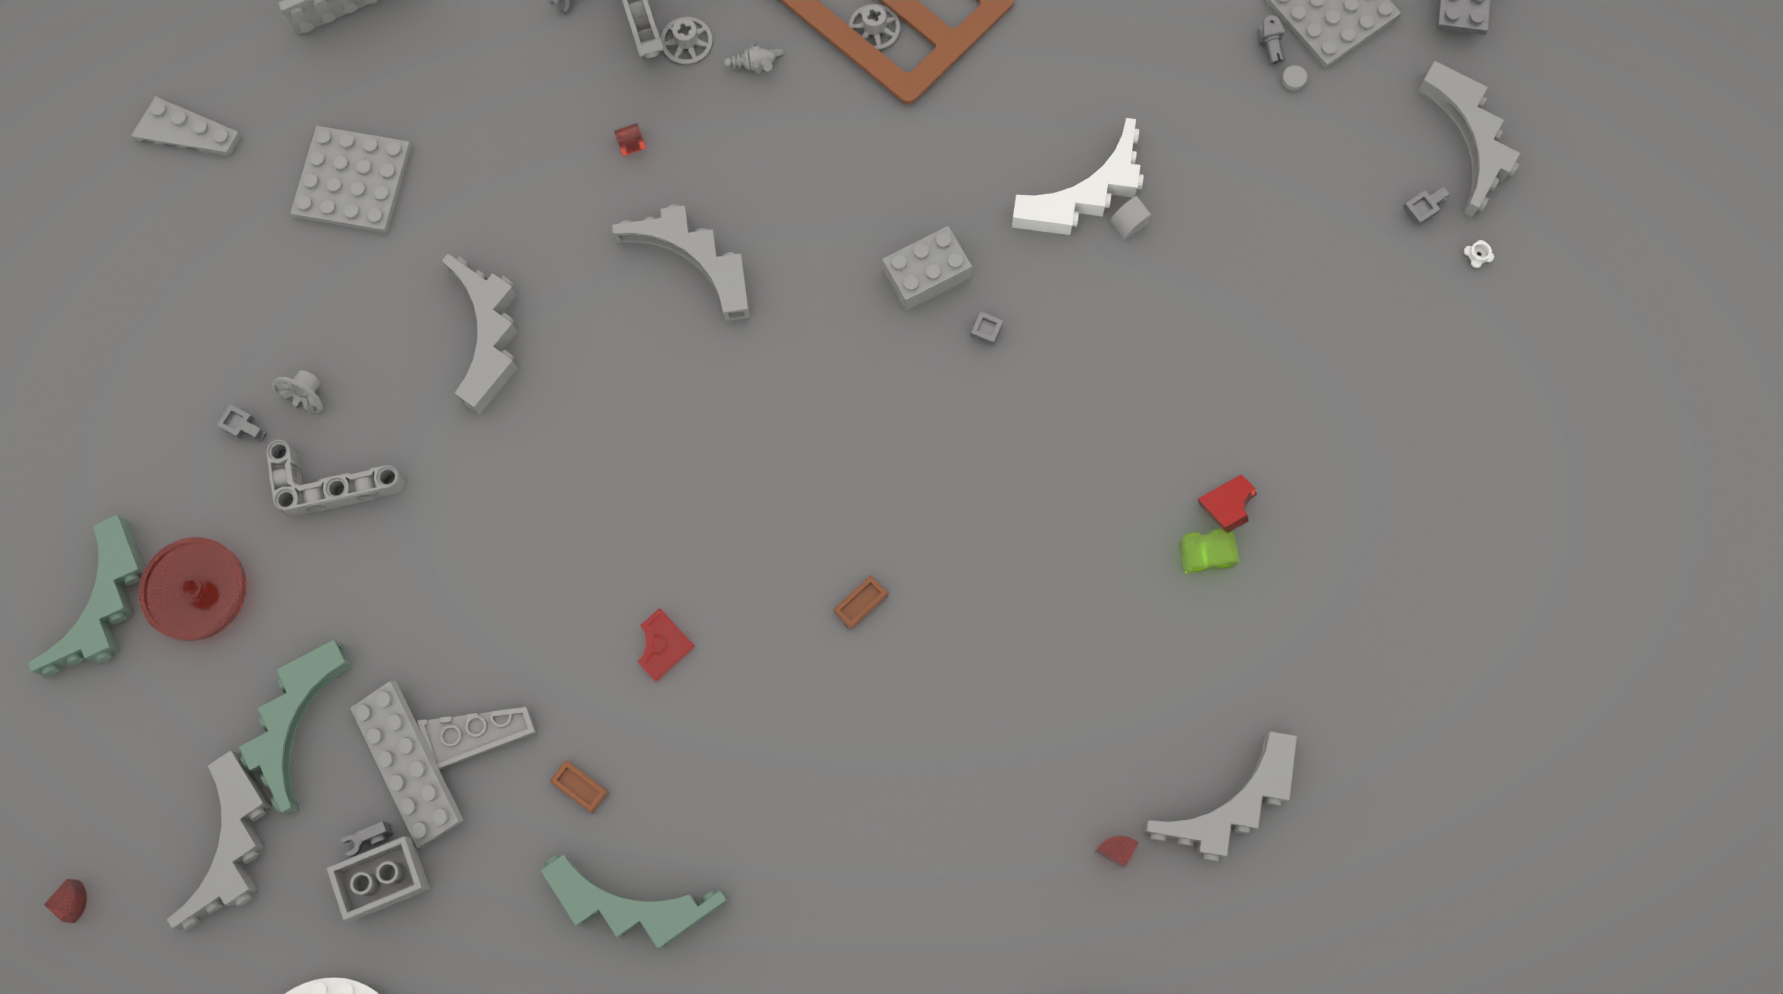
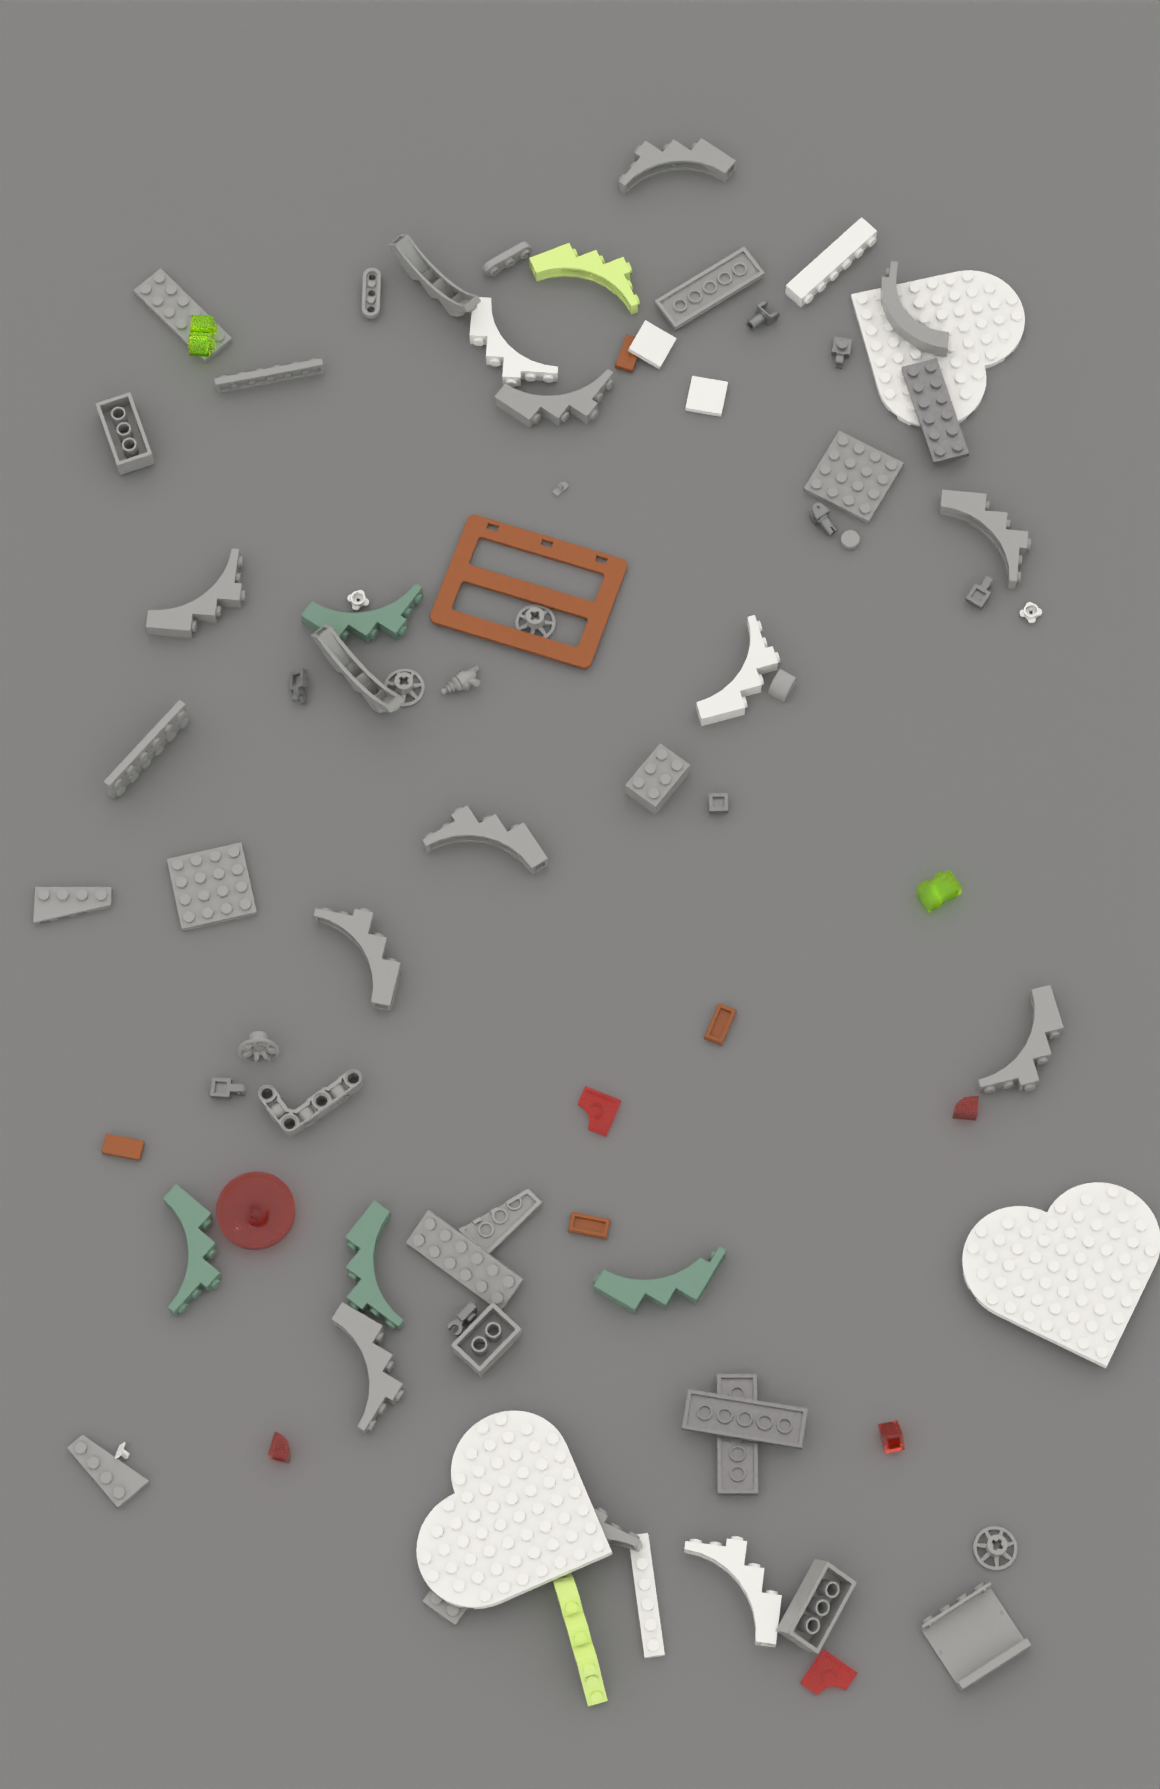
camera: 25 degrees left, 5 degrees down
(90, 442) = (123, 1147): none -> dark orange tile
(630, 139) = (400, 774): clear red brick -> none
(1228, 503) = (937, 852): red tile -> none

